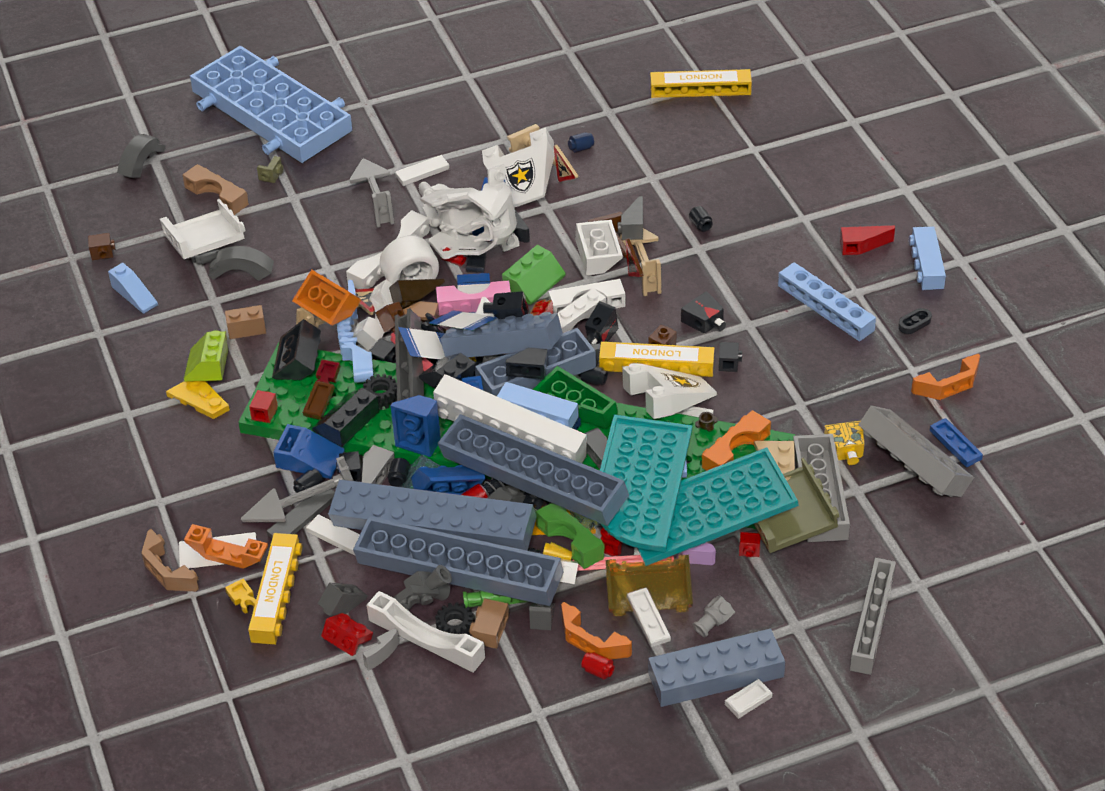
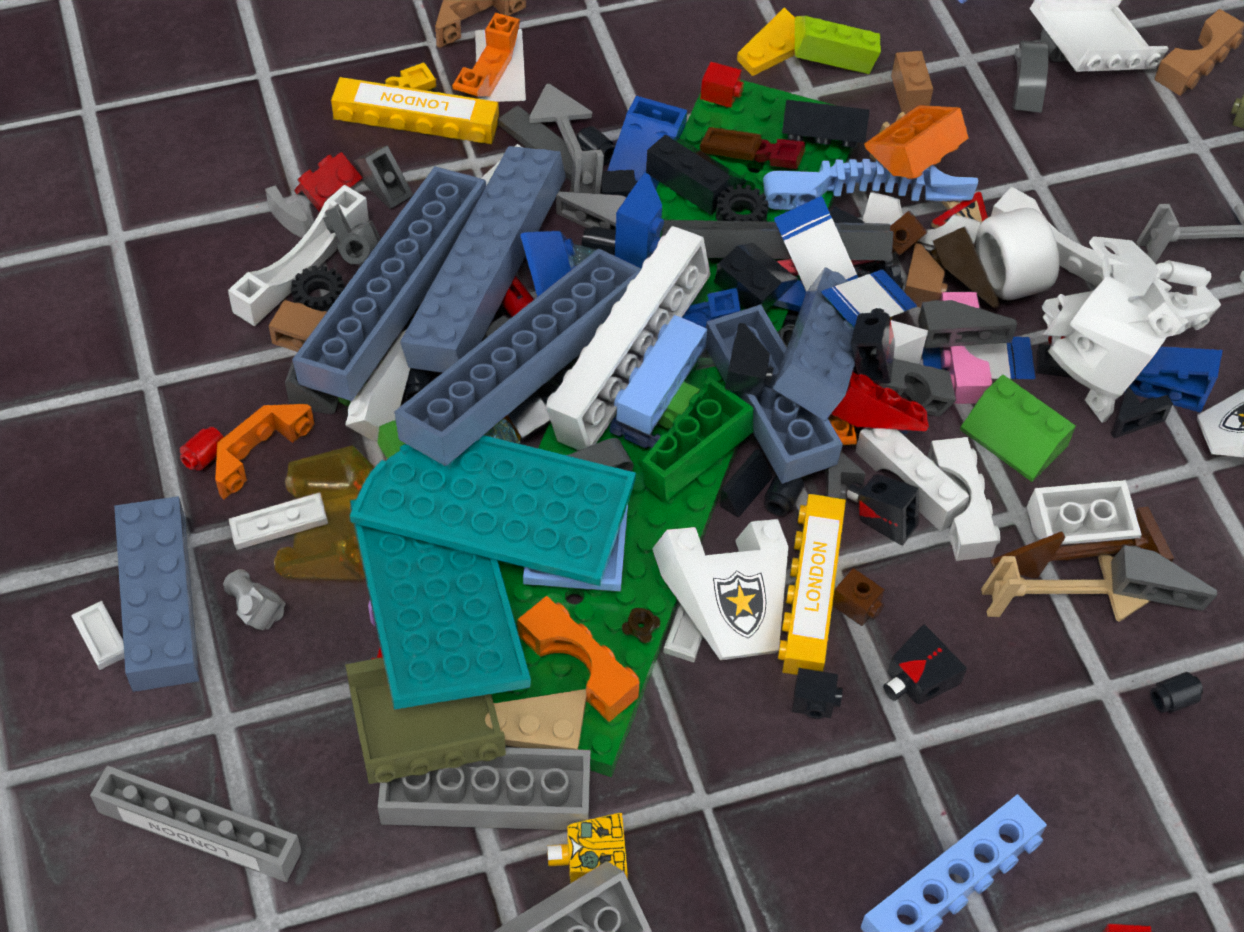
camera: 90 degrees right, 10 degrees up
(469, 289) = (963, 325): none -> dark grey slope

